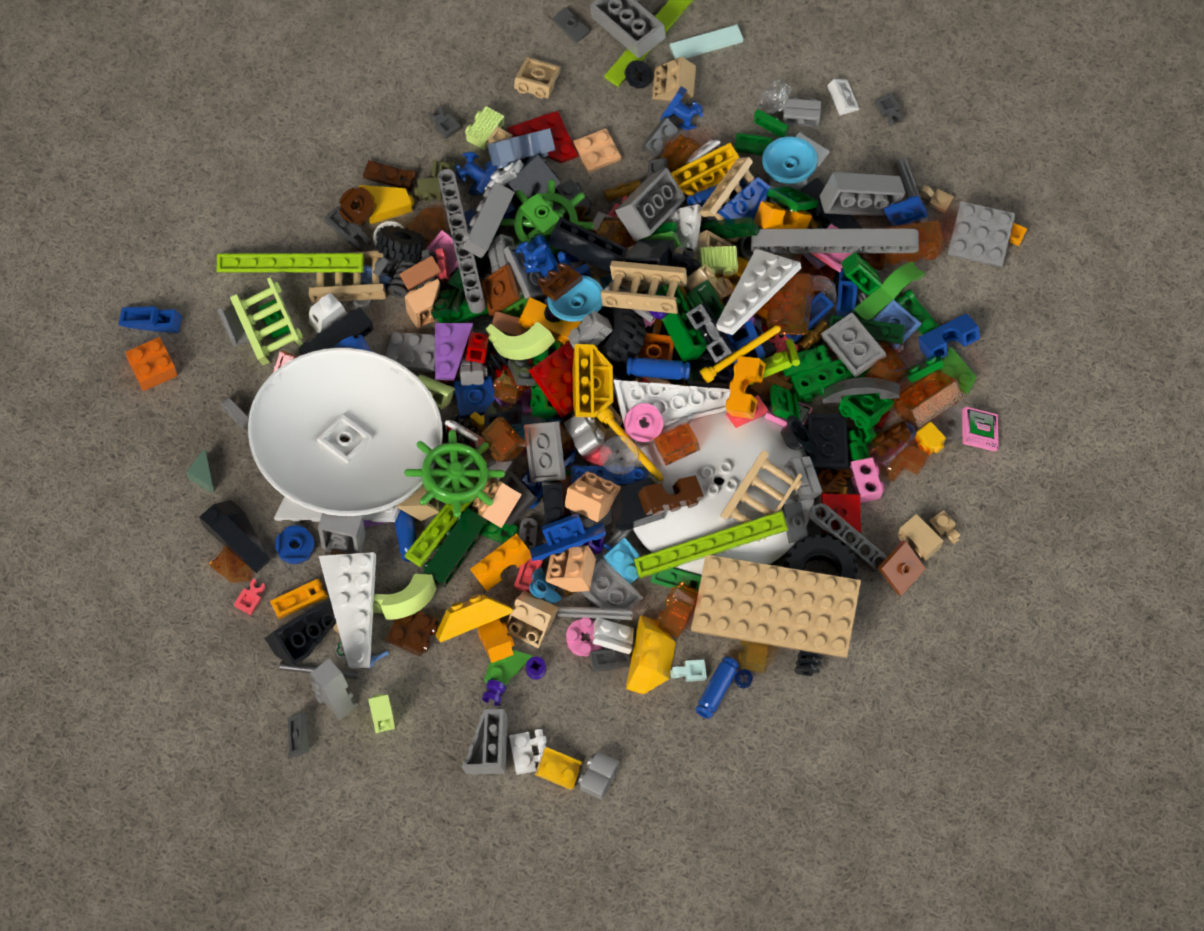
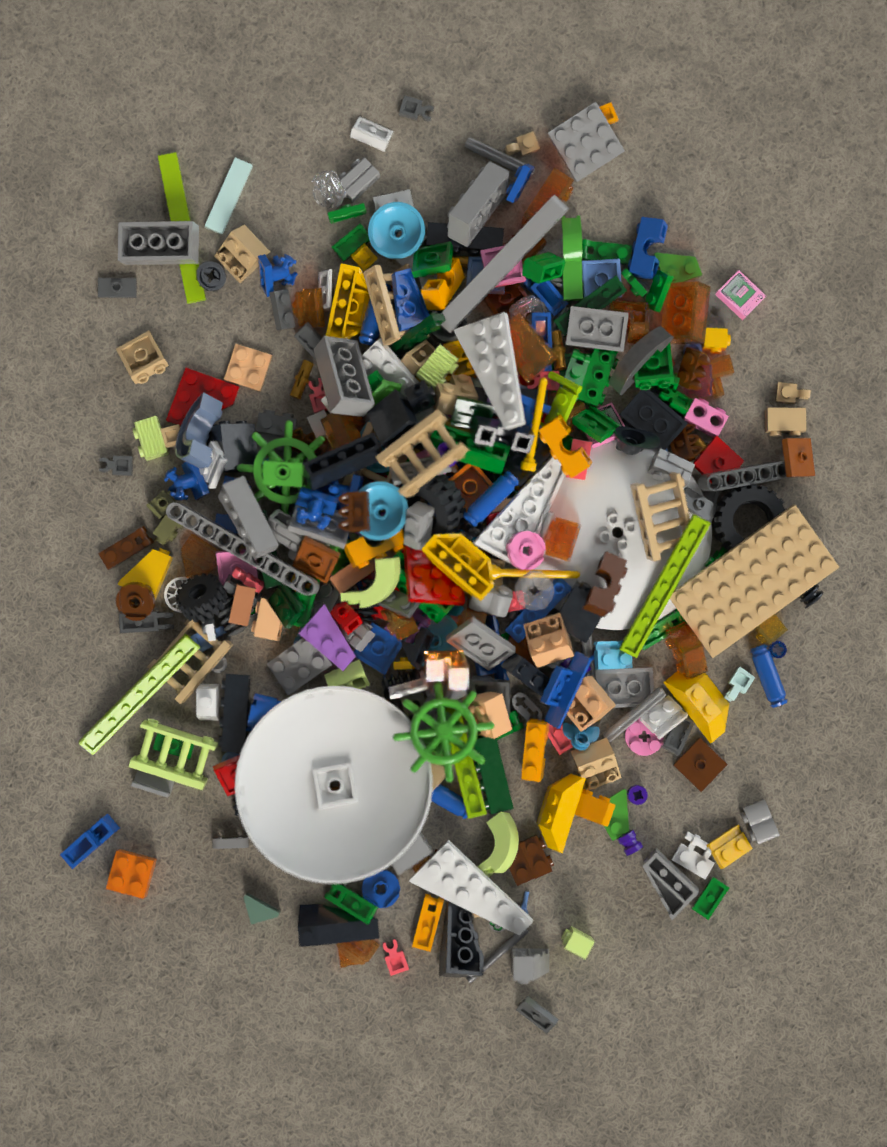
camera: 50 degrees left, 20 degrees up
(265, 530) = (351, 902): none -> green plate
(505, 789) = (710, 898): none -> green plate
(602, 696) = (700, 764): none -> reddish brown plate
(755, 156) = (364, 257): none -> yellow plate
(913, 355) = (636, 288): none -> green plate

